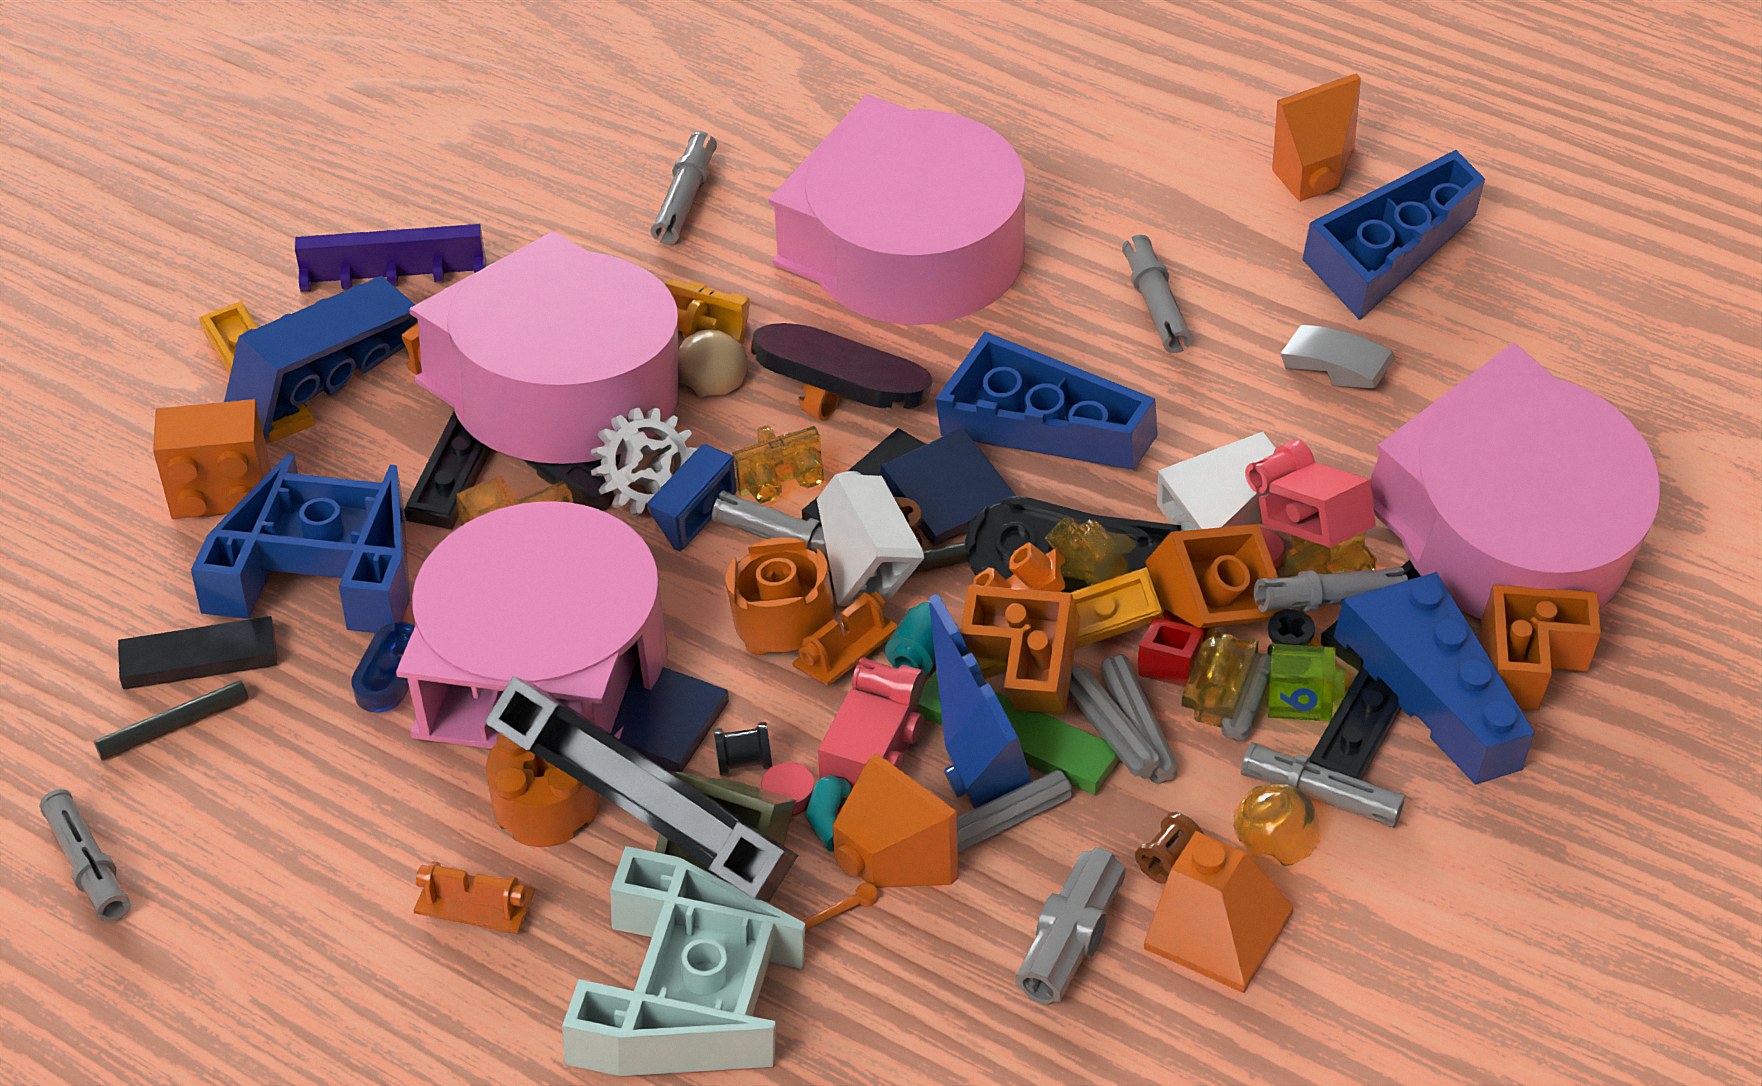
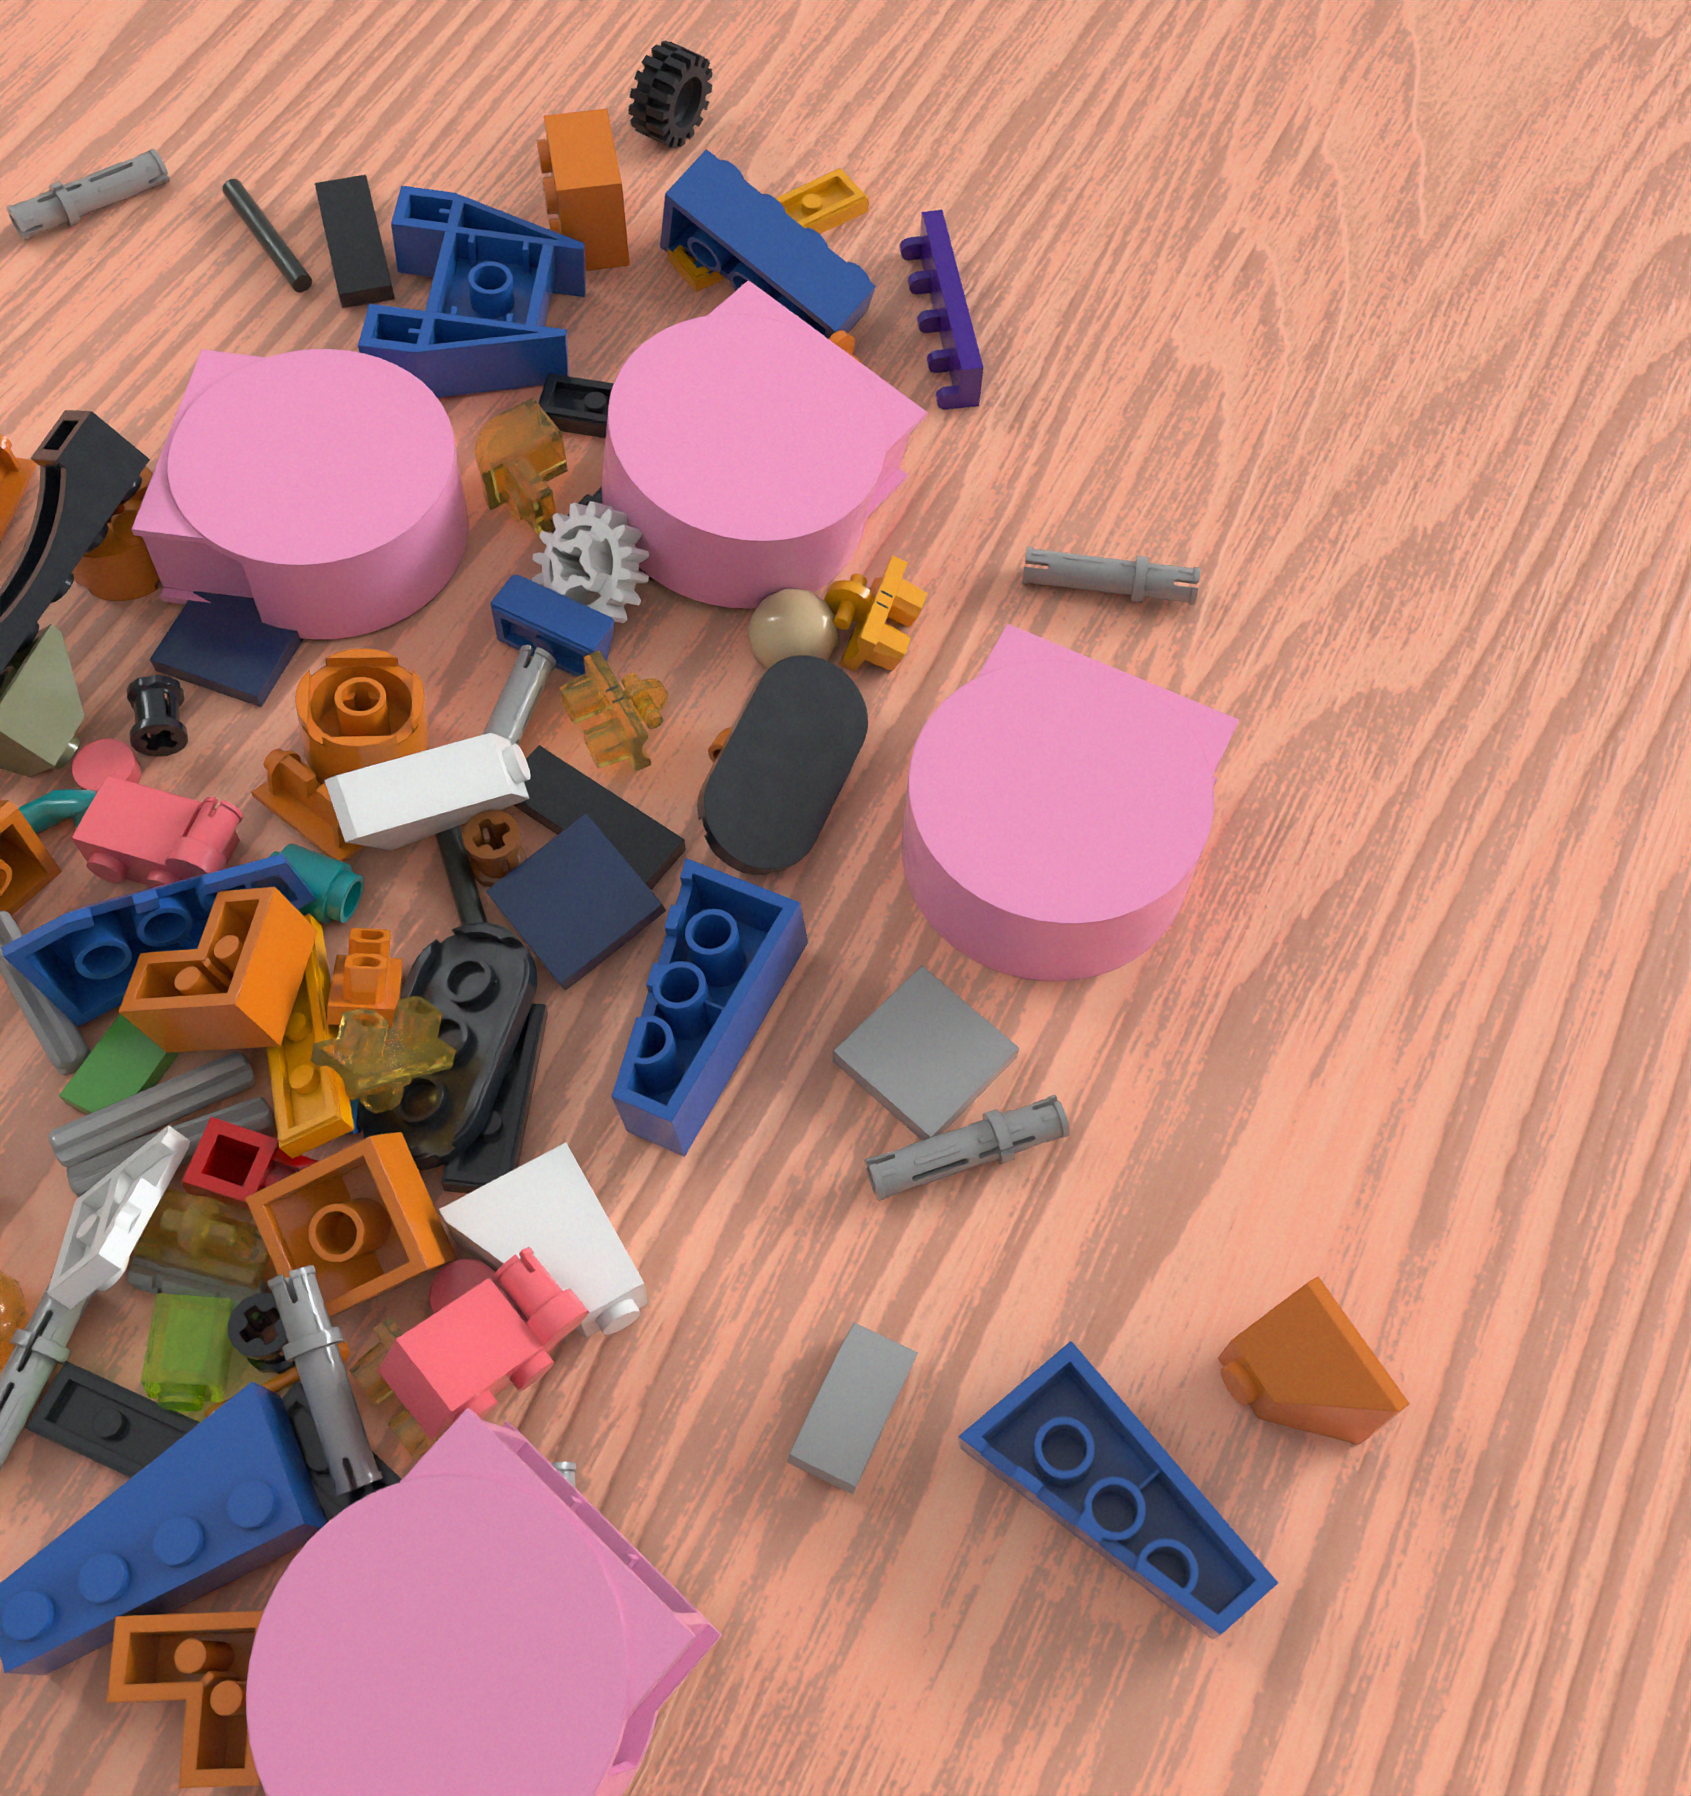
camera: 80 degrees right, 15 degrees up
(95, 406) = (670, 94): none -> black tyre
(1082, 315) = (925, 1054): none -> light grey tile
(1209, 715) = (112, 1217): none -> white wing

